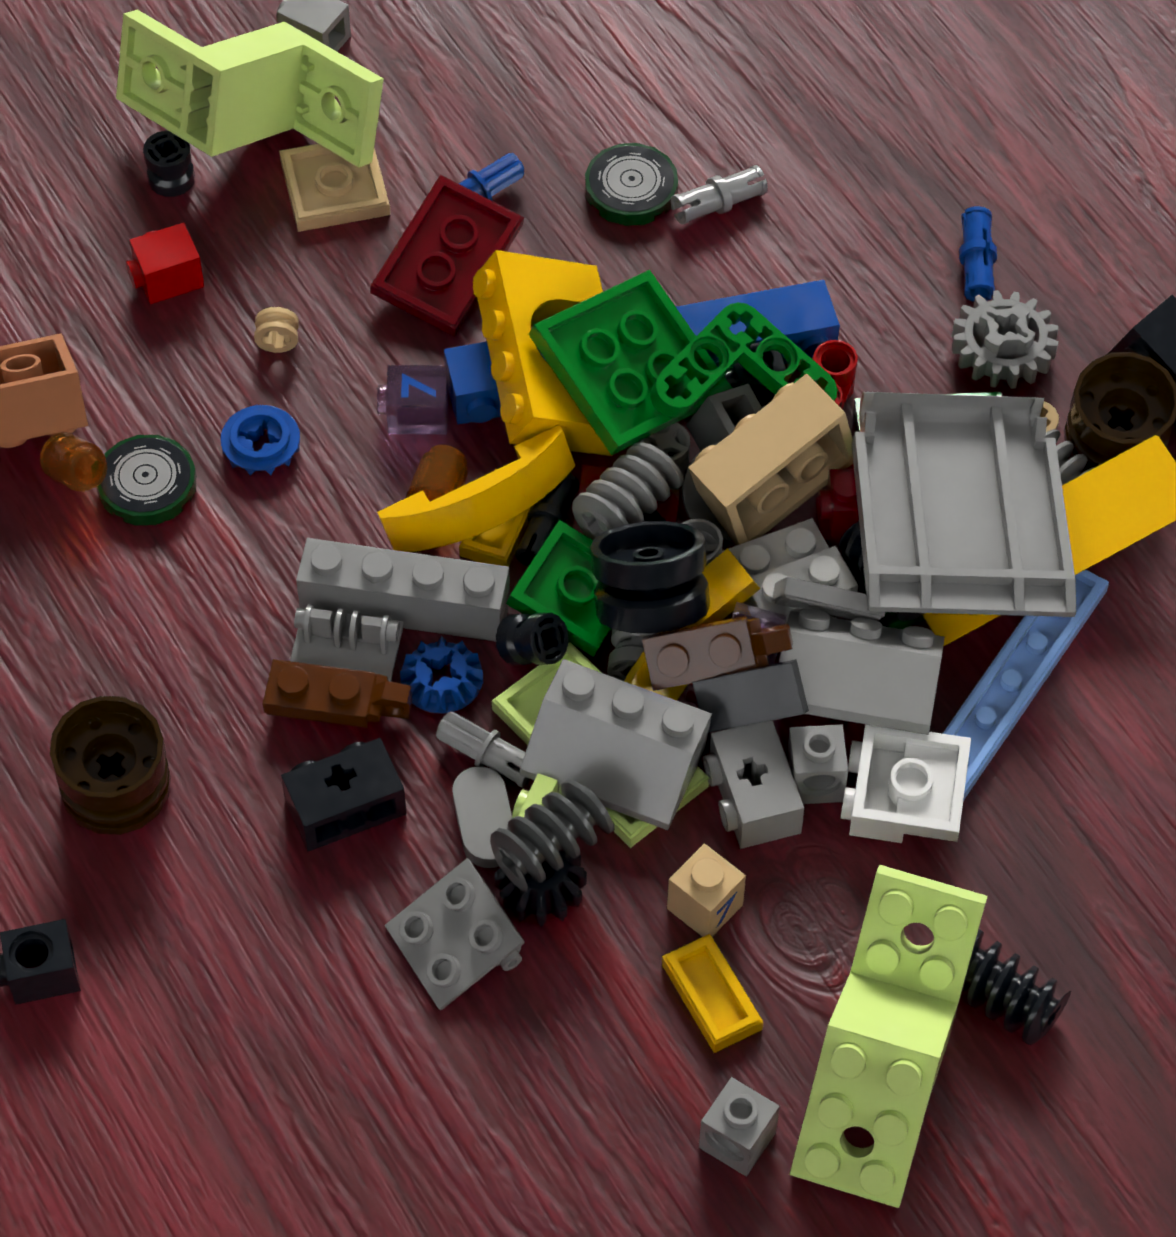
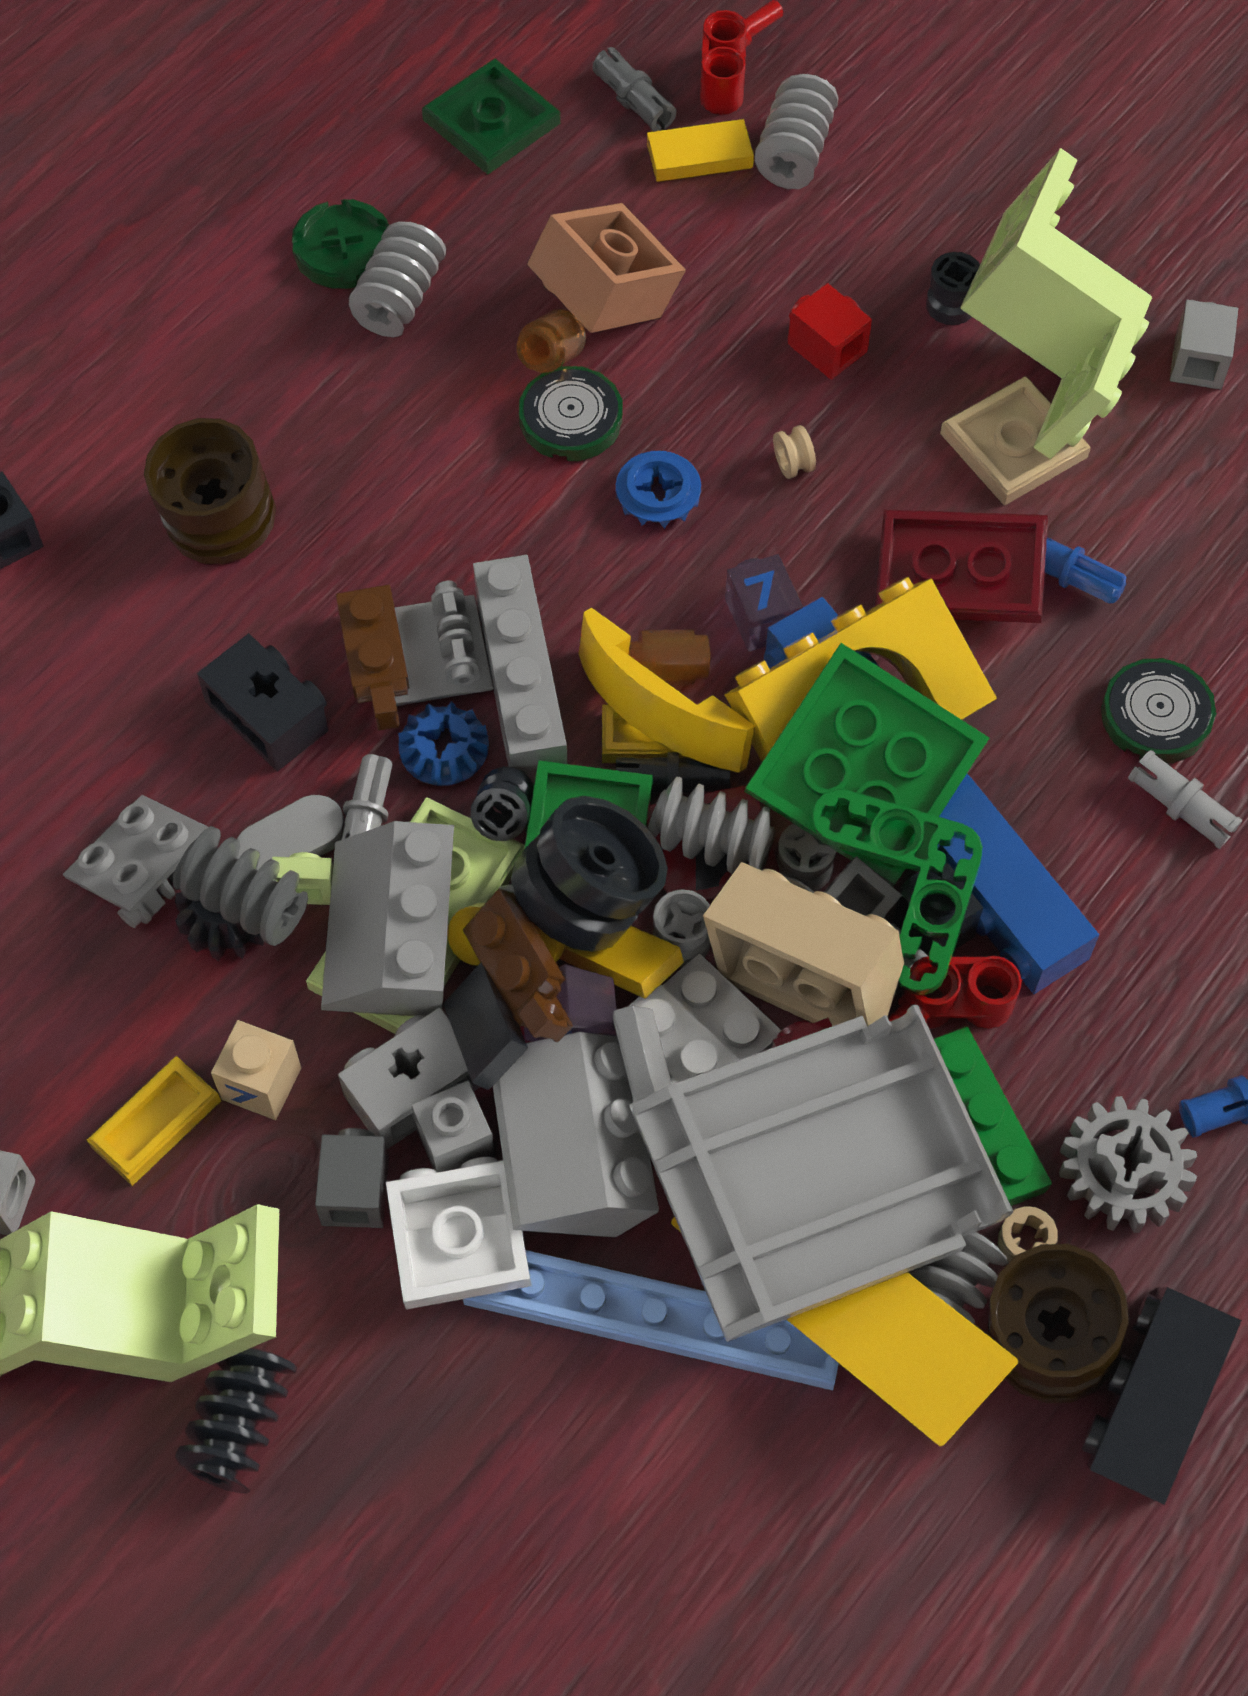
camera: 70 degrees right, 5 degrees up
(828, 850) = (352, 1179): none -> dark grey brick

